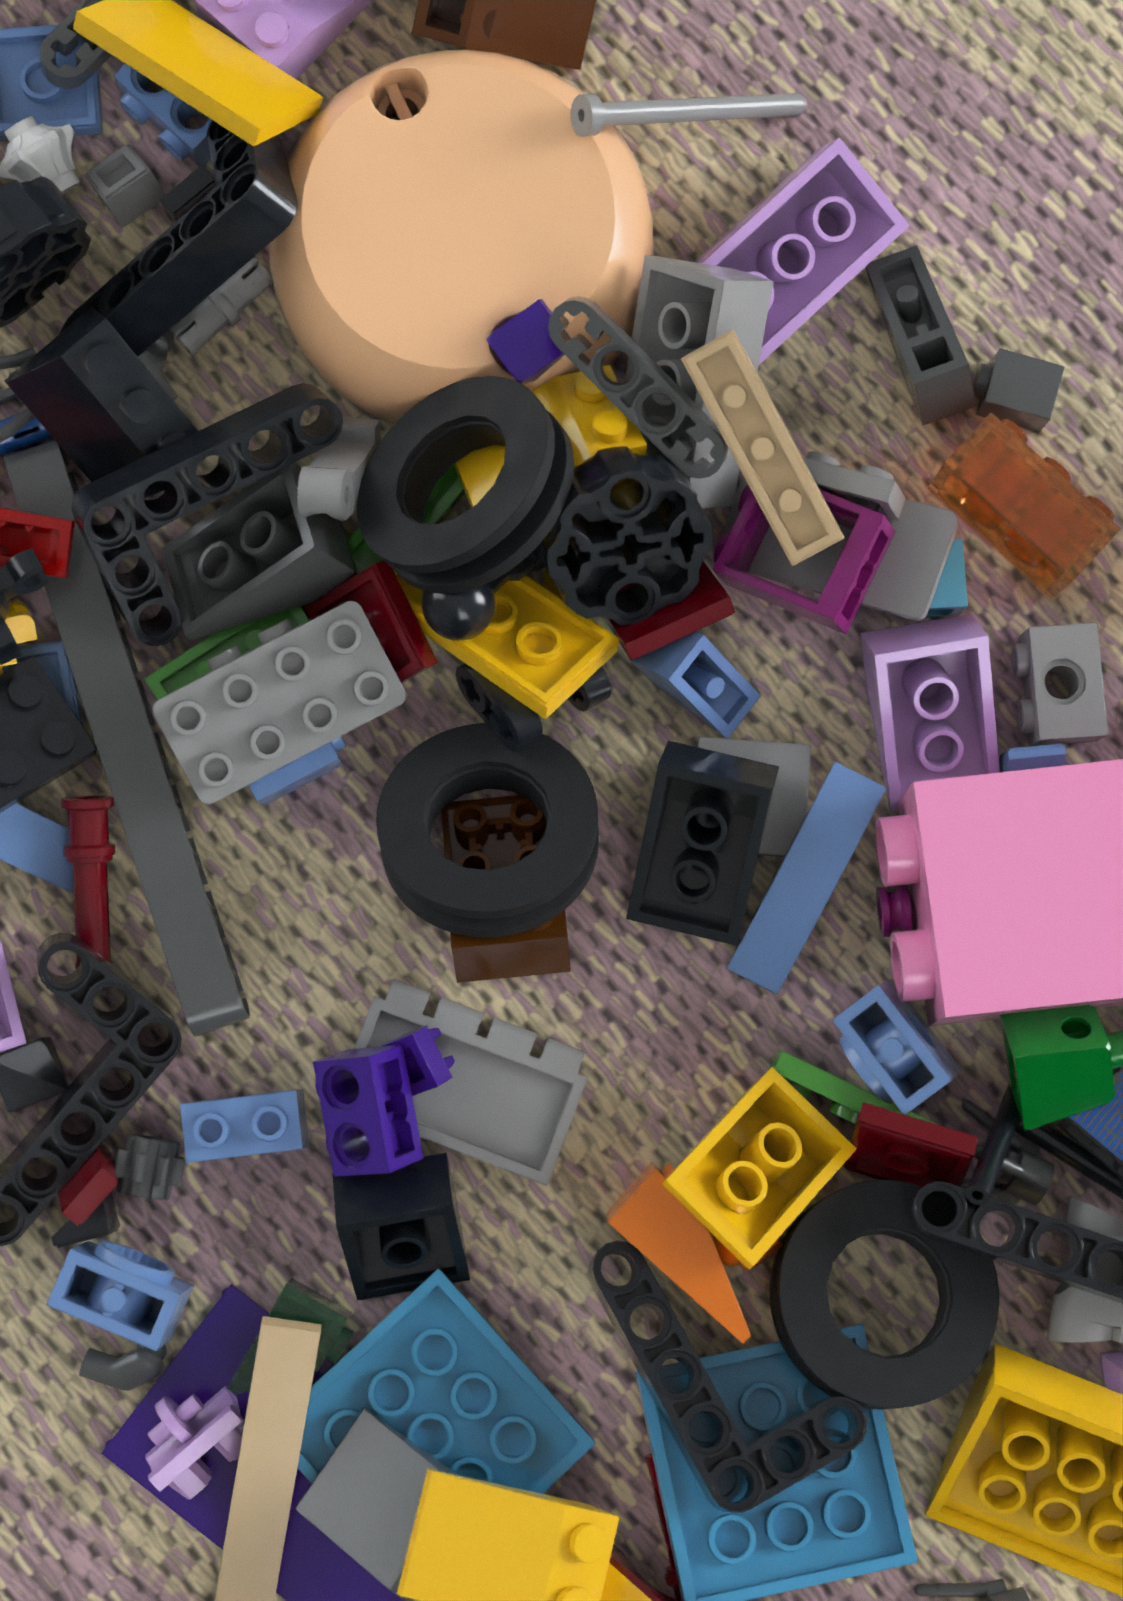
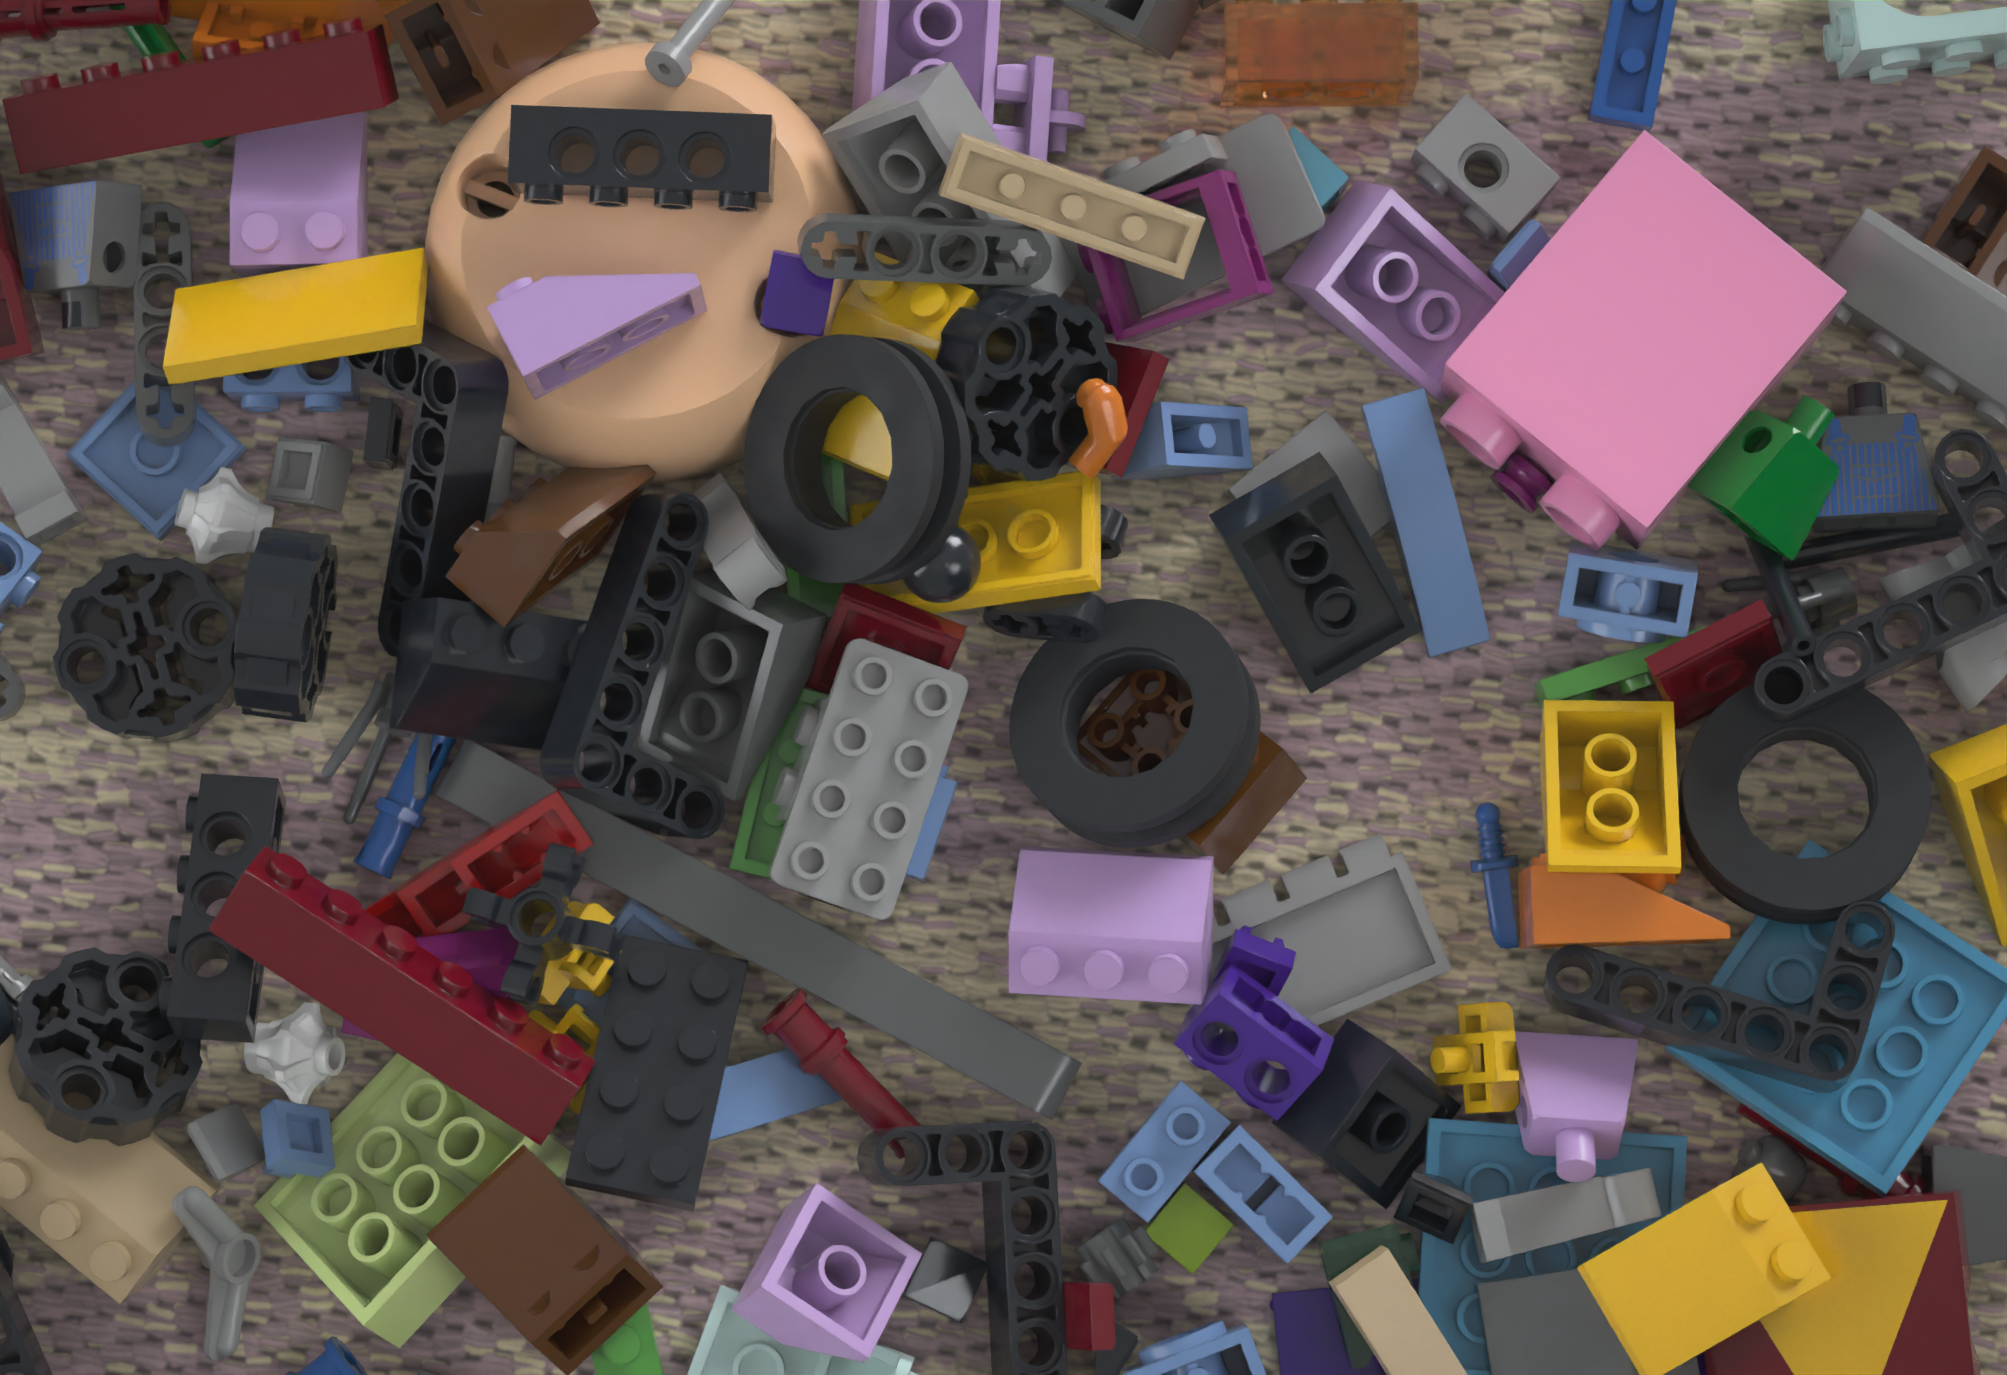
camera: 40 degrees left, 0 degrees up
(217, 351) = (543, 537): none -> reddish brown slope
(217, 1190) = (1188, 1228): none -> lime tile
(280, 1215) = (1262, 1194): none -> medium blue brick
(348, 947) = (1112, 925): none -> lavender slope
(362, 224) = (584, 321): none -> lavender slope
(384, 1330) = (1434, 1205): none -> black slope
(462, 86) = (545, 132): none -> black brick
(463, 1417) = (1561, 1213): none -> light grey leg
(509, 1262) = (1482, 1057): none -> yellow piece
(542, 1346) = (1573, 1098): none -> lavender torso
(634, 1151) = (1496, 876): none -> blue piece
(638, 1516) = (1780, 1160): none -> dark grey piece
(650, 614) = (1105, 426): none -> orange arm
(811, 358) = (1039, 111): none -> lavender hips

